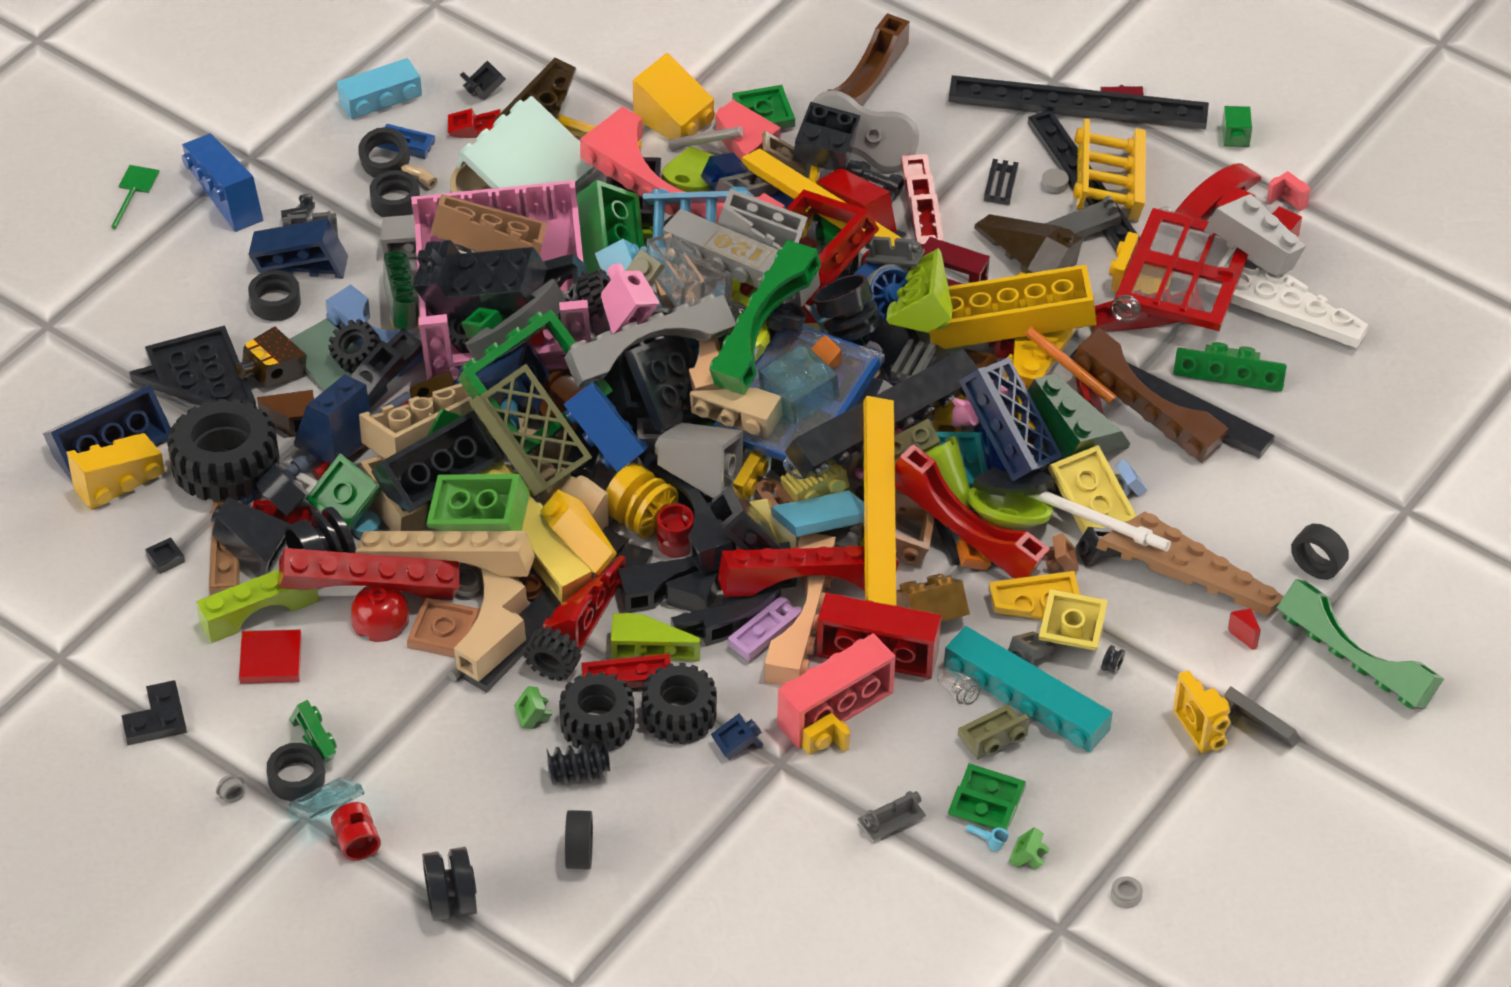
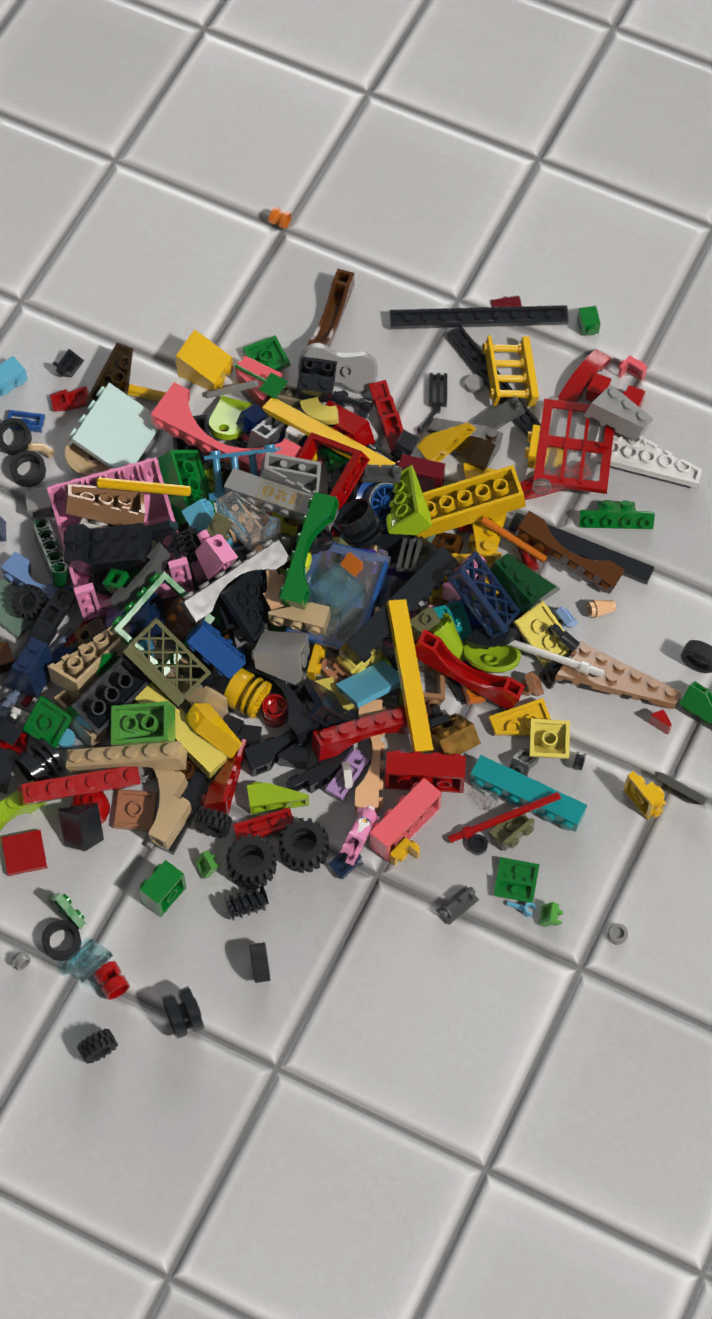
camera: 10 degrees left, 15 degrees up
(313, 909) = (97, 1046): none -> black tyre
(360, 629) = (81, 826): none -> black slope
(459, 723) = (162, 888): none -> green brick
(548, 215) = (140, 486): none -> yellow axle
(761, 135) = (272, 385): none -> green piece
(761, 692) = (359, 833): none -> bright pink animal
(763, 617) = (347, 774): none -> white tile
(780, 195) = (293, 434): none -> white tile
(829, 179) = (320, 412): none -> light yellow tile
(913, 571) = (438, 716): none -> black tile
(927, 725) = (468, 831): none -> red bar
(938, 228) = (404, 444): none -> black brick
(939, 745) = (477, 844): none -> black tile
(994, 205) = (437, 409): none -> black hinge
(1000, 234) = (442, 443): none -> yellow slope
(1119, 497) = (563, 637): none -> black bar
(1183, 474) = (600, 607): none -> light nougat cone

